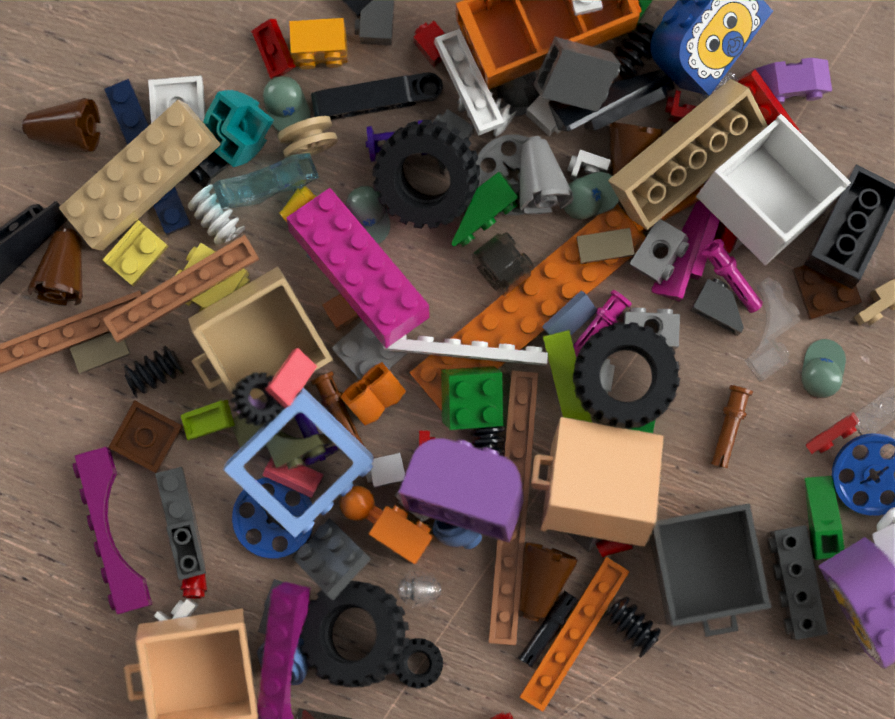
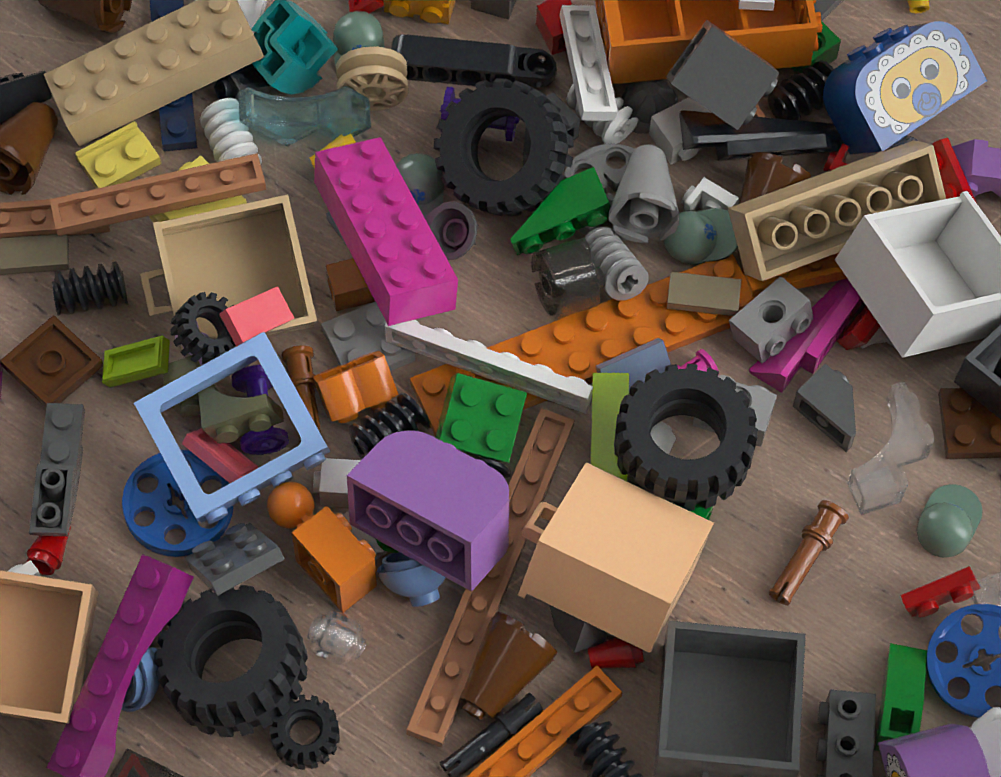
camera: 15 degrees right, 20 degrees down
(404, 247) = (453, 228): none -> dark grey piece
(406, 419) = (395, 418): none -> black piece
(533, 241) = (622, 271): none -> light grey piece
(726, 266) = (851, 353): dark pink pin -> none

